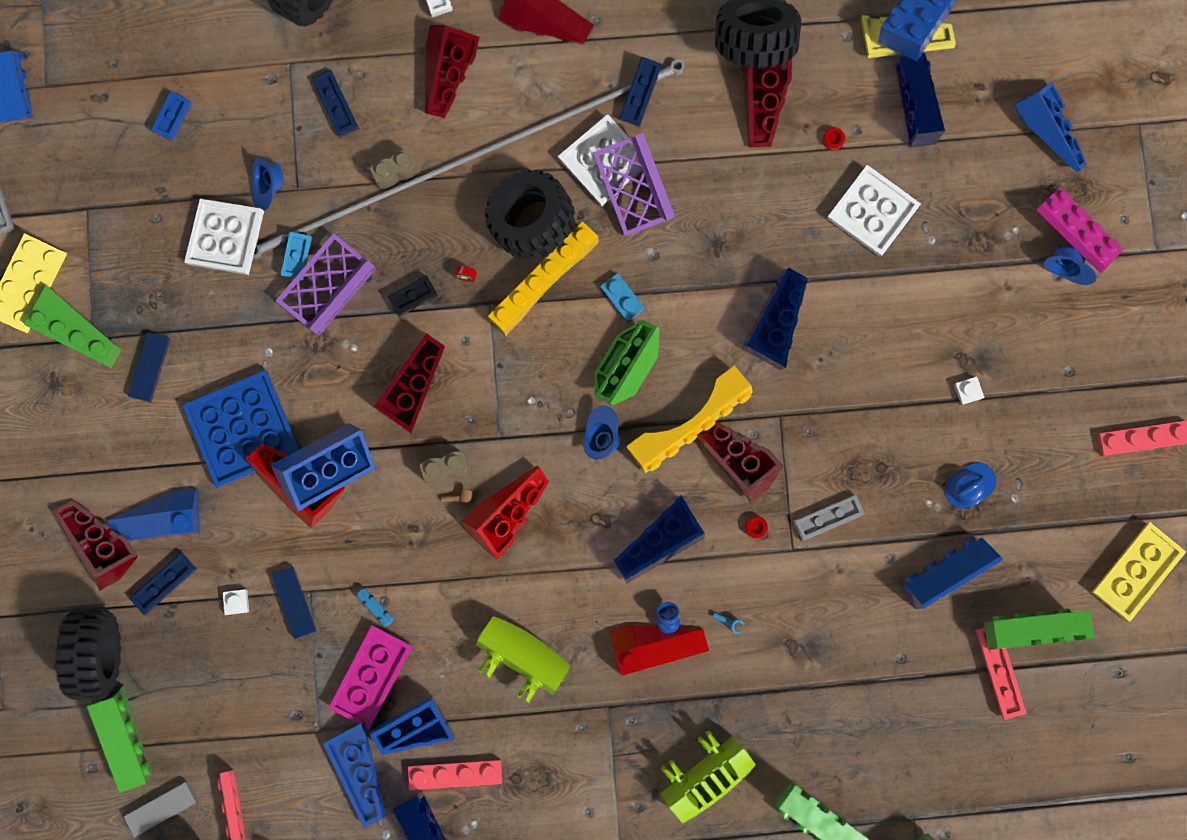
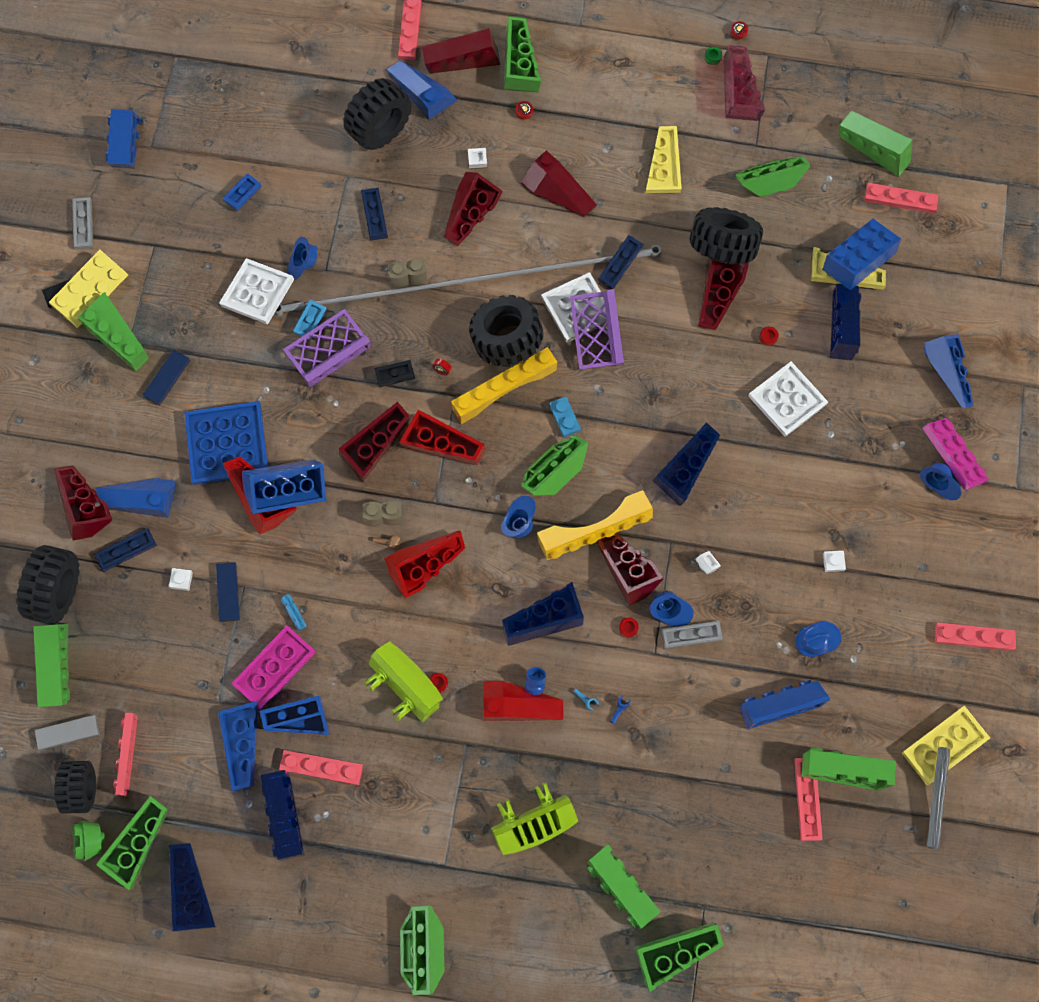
camera: 10 degrees right, 10 degrees down
(483, 362) = (439, 439): none -> red wedge
(560, 644) = (440, 681): none -> red tile
(769, 622) = (621, 707): none -> blue hand
(798, 495) = (671, 609): none -> blue piece
(827, 430) = (707, 562): none -> white plate
(1143, 633) = (938, 798): none -> dark grey axle

